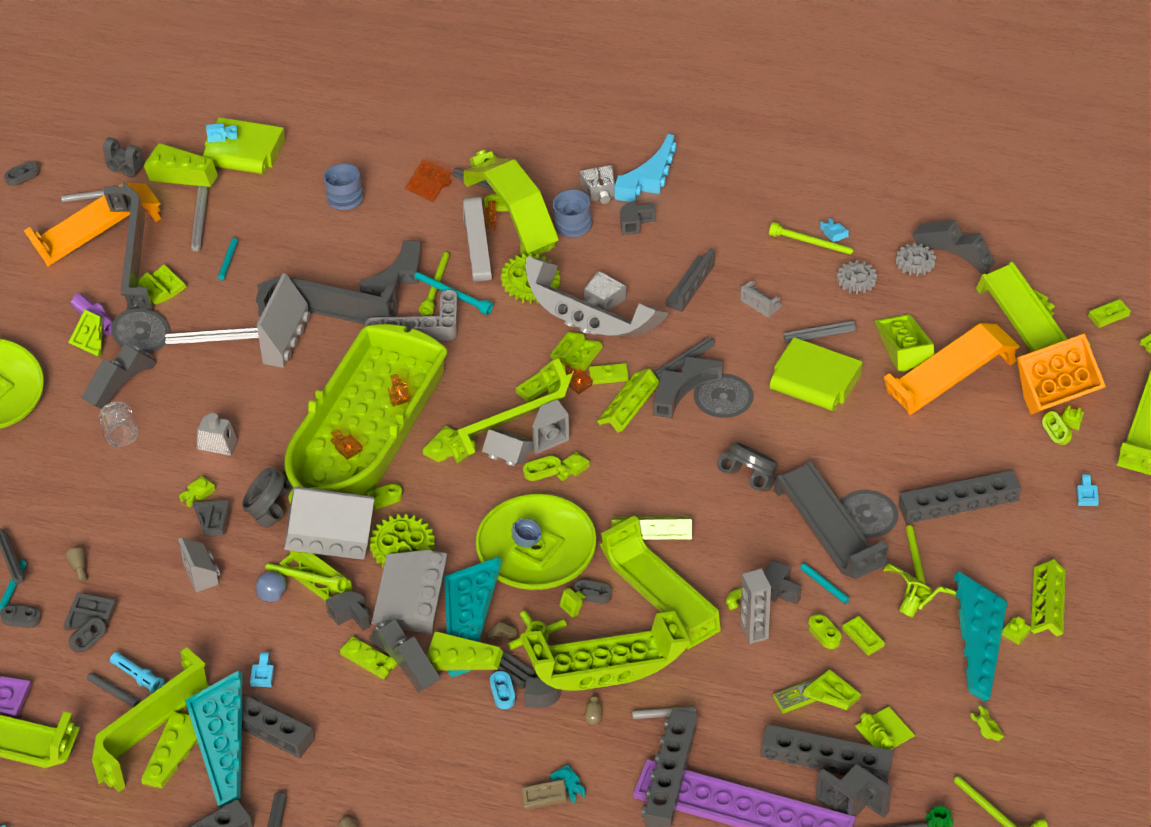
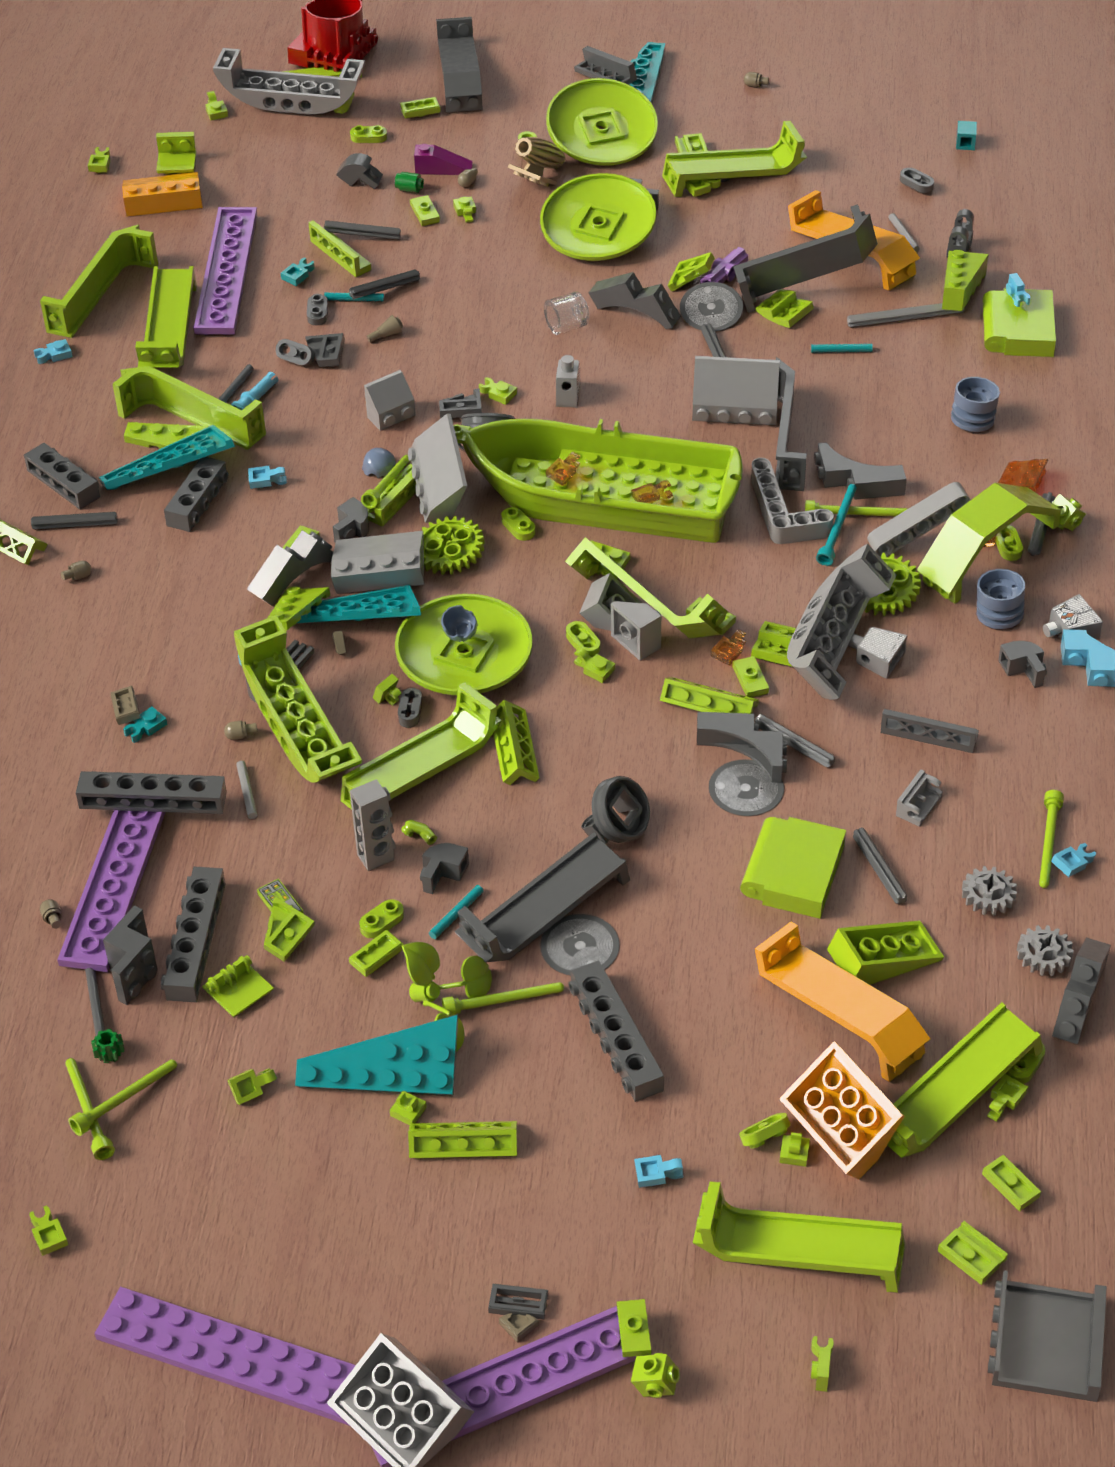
camera: 80 degrees right, 0 degrees up
(536, 626) = (337, 668): lime bar -> none

